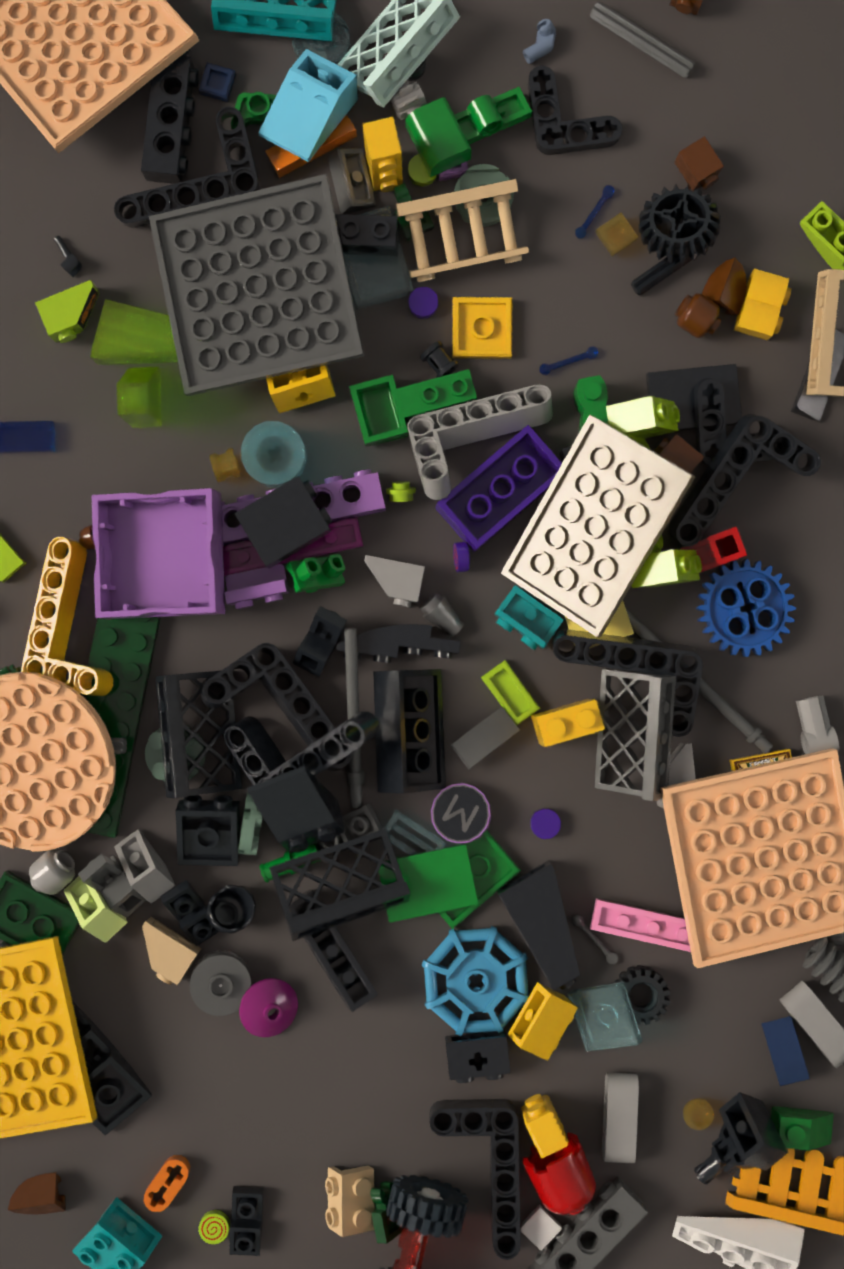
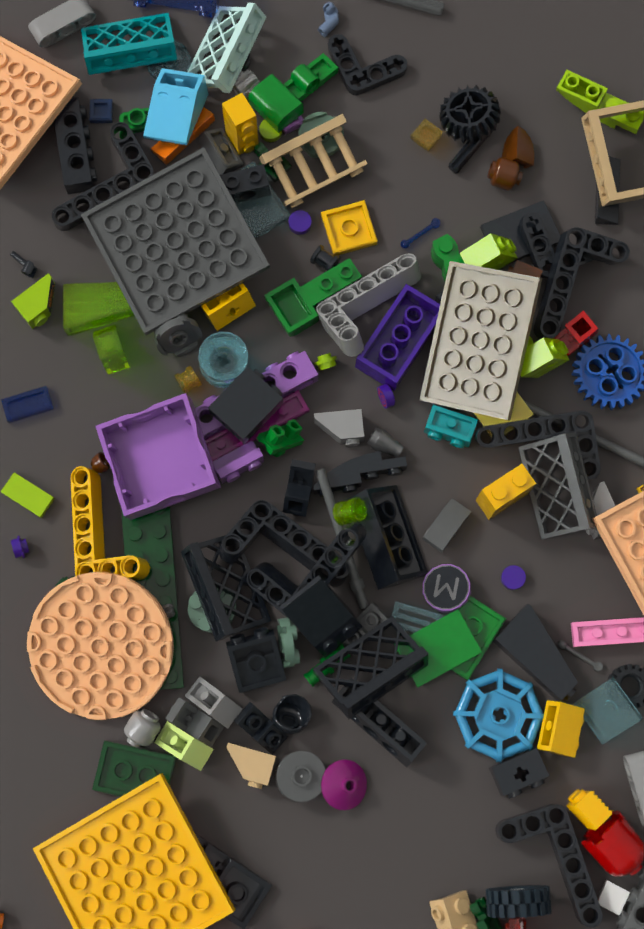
camera: 15 degrees left, 10 degrees down
(228, 406) = (167, 333): none -> dark grey plate
(370, 690) = (349, 511): none -> clear neon green wheel
(510, 692) = (454, 486): lime tile -> none
(607, 193) = (410, 109): clear blue hinge -> none
(699, 164) = (470, 70): reddish brown brick -> none
(762, 305) = (549, 153): yellow brick -> none

